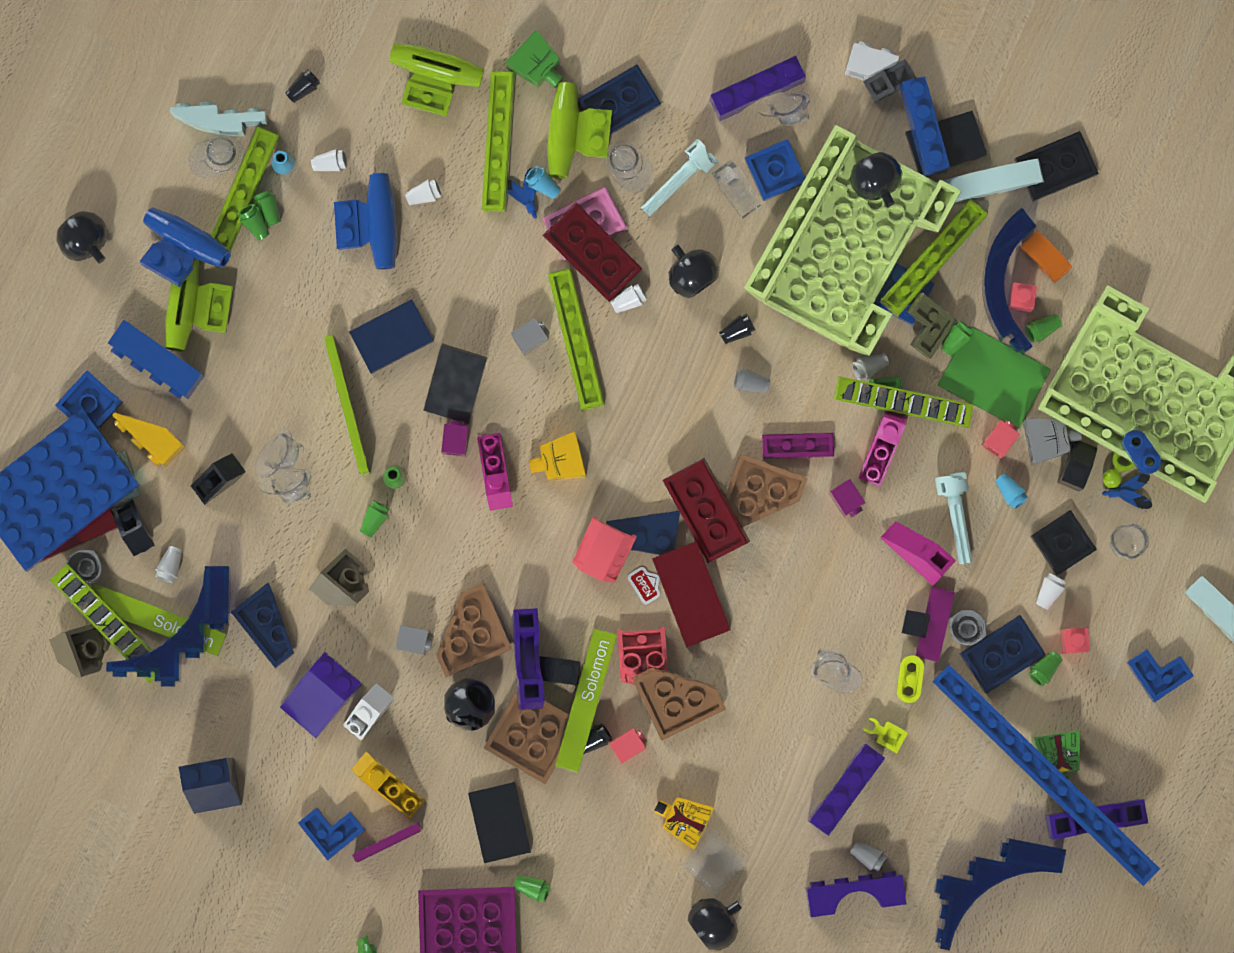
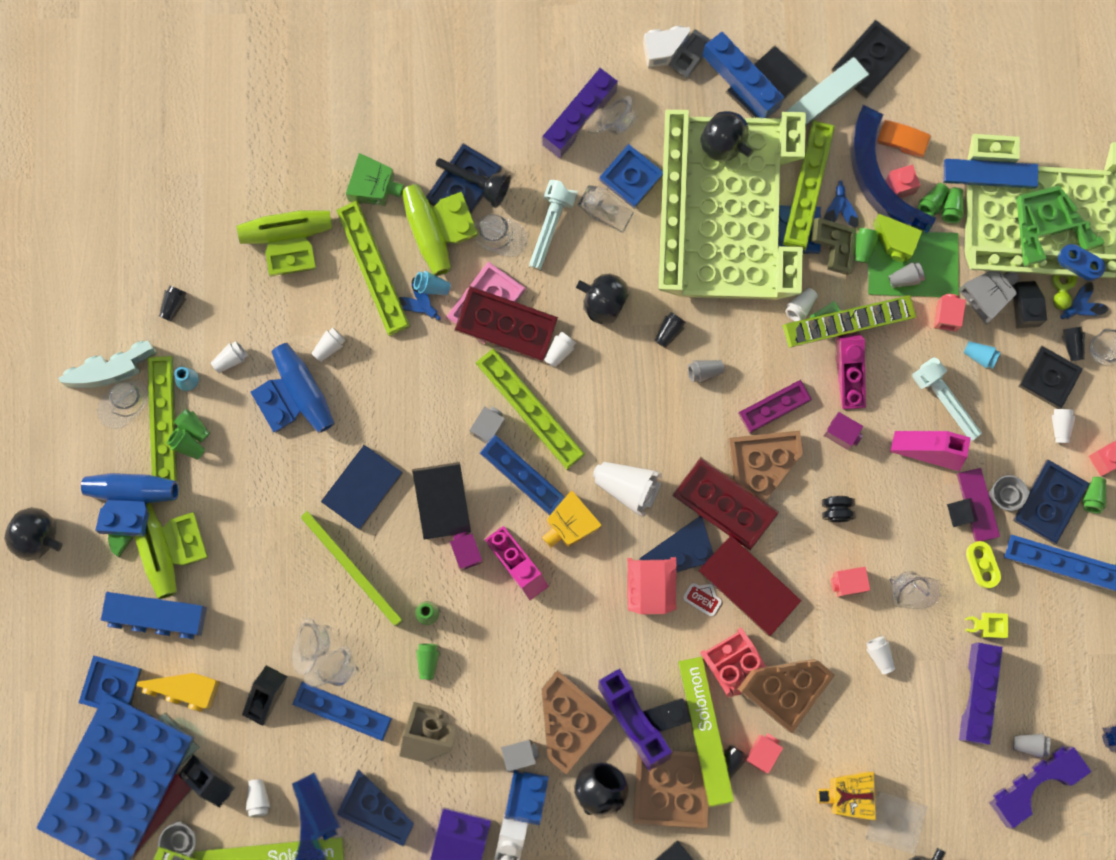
camera: 30 degrees left, 5 degrees down
(154, 282) = (118, 543): none -> bright green tile
(278, 526) = (342, 711): none -> blue tile
(401, 679) = (526, 797): none -> blue plate
(538, 395) = (522, 475): none -> blue tile
(629, 452) = (629, 485): none -> white cone
(643, 120) = (493, 187): none -> black piece
(776, 712) = (881, 654): none -> white cone
(782, 635) = (850, 582): none -> coral brick
(805, 565) = (838, 509): none -> black wheel
(956, 290) = (841, 204): none -> blue piece
(980, 386) = (907, 276): none -> light grey cone
(989, 347) = (896, 237): none -> lime slope
(1058, 342) = (954, 206): none -> bright green cone
(1101, 522) = (1075, 343): none -> black cone
(1106, 329) = (990, 173): none -> blue tile
(1135, 392) = (1047, 214): none -> bright green wing

